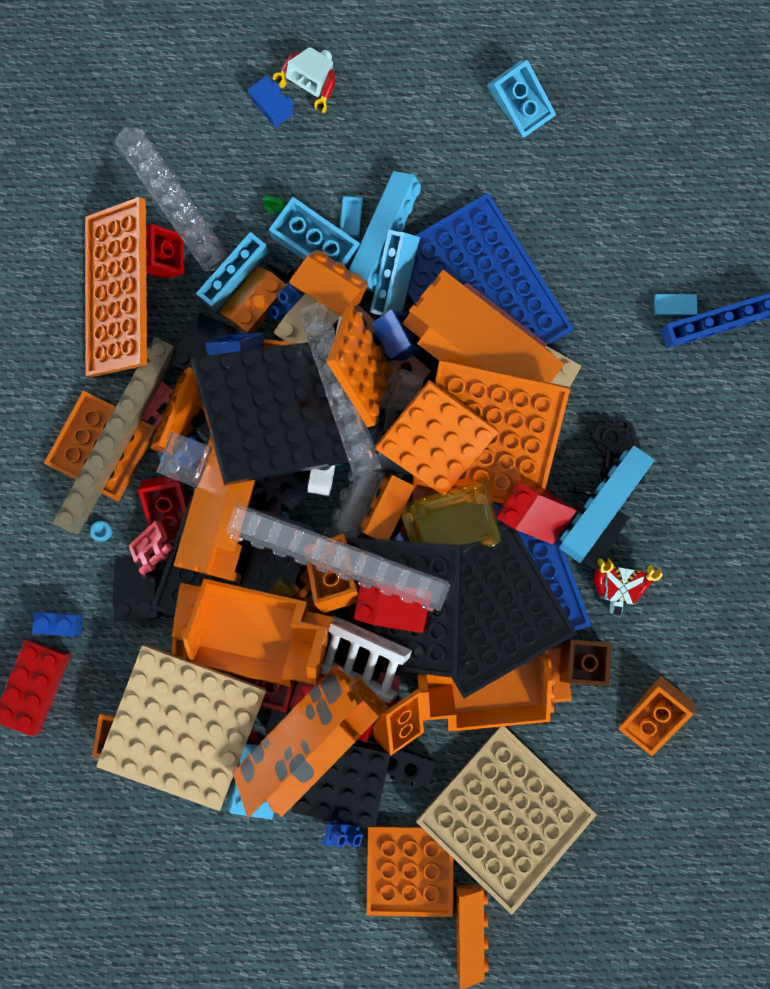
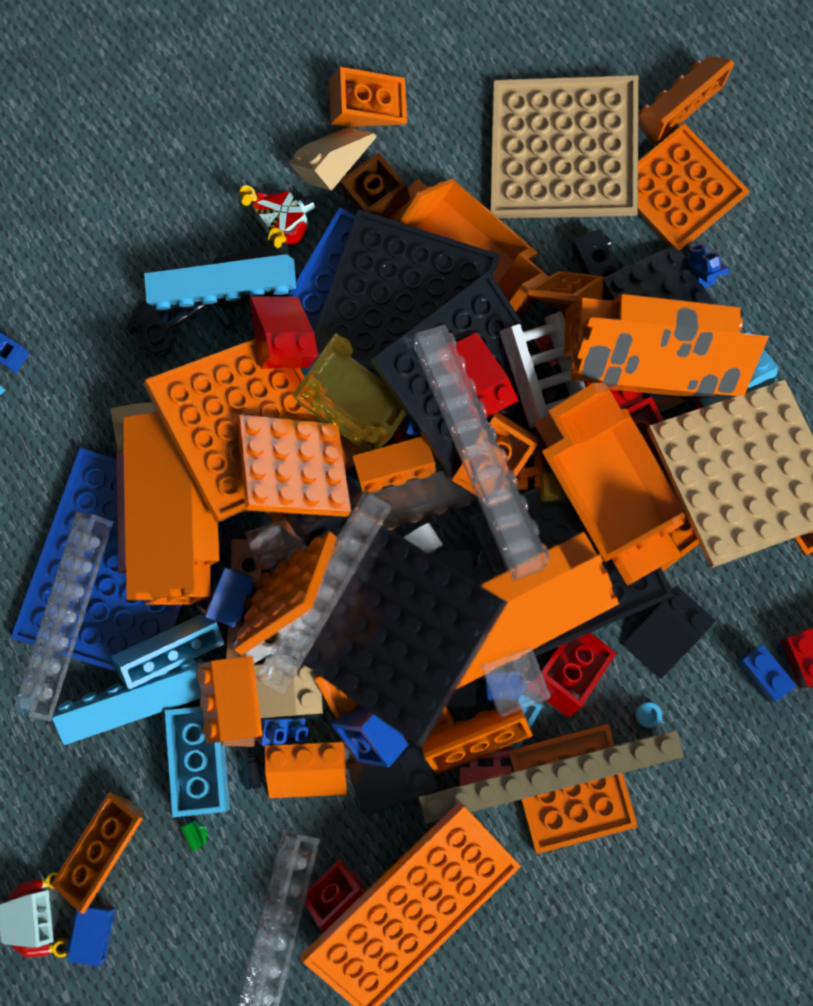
camera: 130 degrees left, 5 degrees down
(148, 542) = (619, 657): coral plate -> none
(233, 272) = (296, 812): medium azure brick -> none
(312, 141) = (97, 850): none -> orange slope
(351, 216) = (143, 750): medium azure tile -> none
(471, 231) = (63, 616): none -> clear brick
(634, 655) = (330, 157): none -> tan slope

